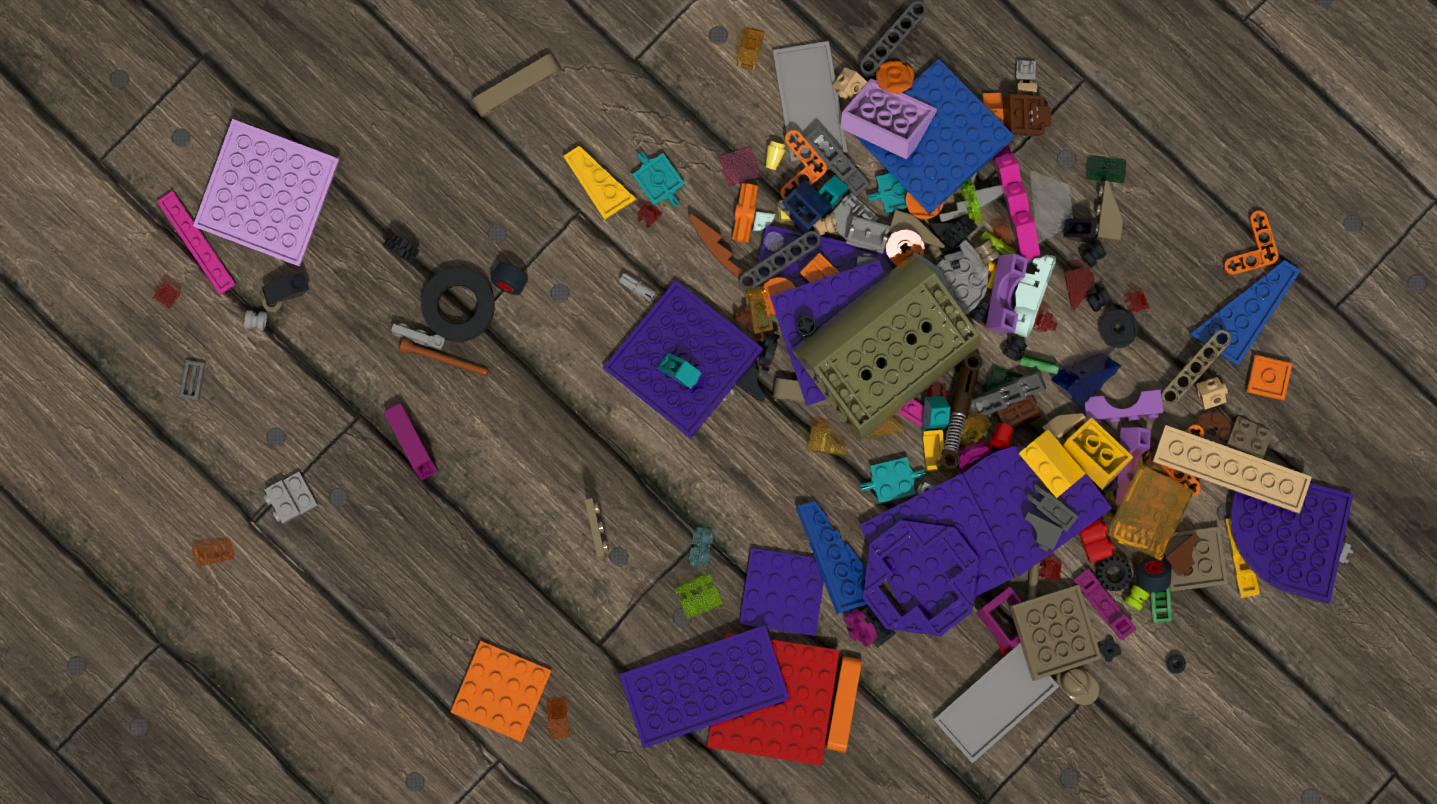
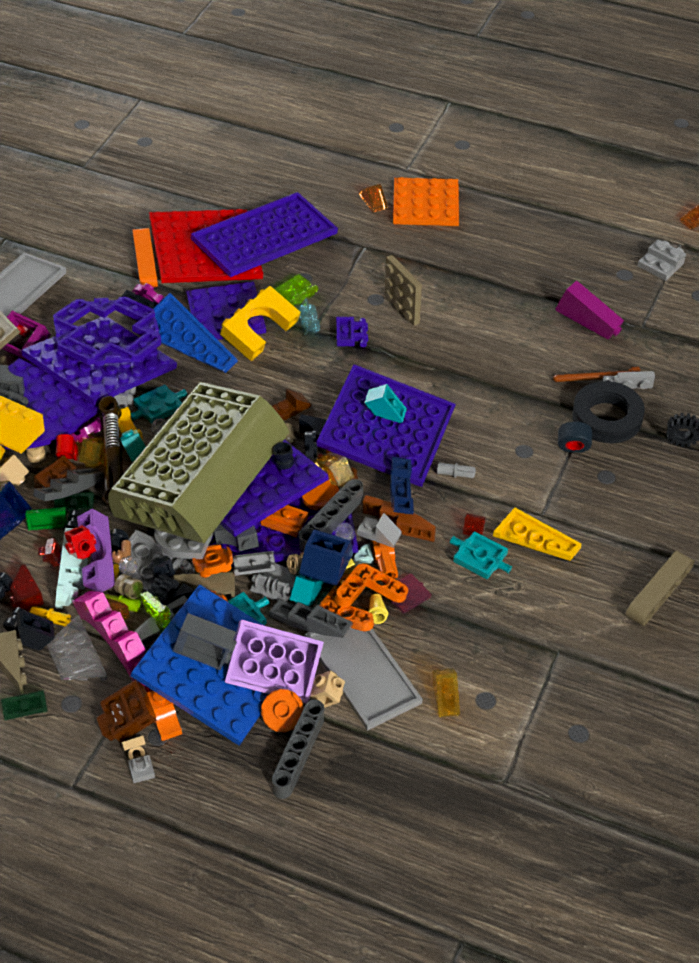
camera: 155 degrees right, 35 degrees down
(670, 512) = (346, 334): none -> dark purple plate
(704, 269) = (400, 486): none -> dark blue slope
(742, 568) = (268, 304): none -> yellow arch
(743, 227) = (380, 531): none -> light grey slope
(762, 430) = (292, 405): none -> reddish brown slope
(771, 181) = (369, 580): none -> orange beam
(900, 447) = (157, 425): none -> clear plate
(945, 135) = (205, 642): none -> dark grey window
(980, 289) = (125, 551): none -> medium nougat arm
(1020, 298) = (80, 542): none -> red brick
(1063, 251) = (57, 617): none -> yellow axle

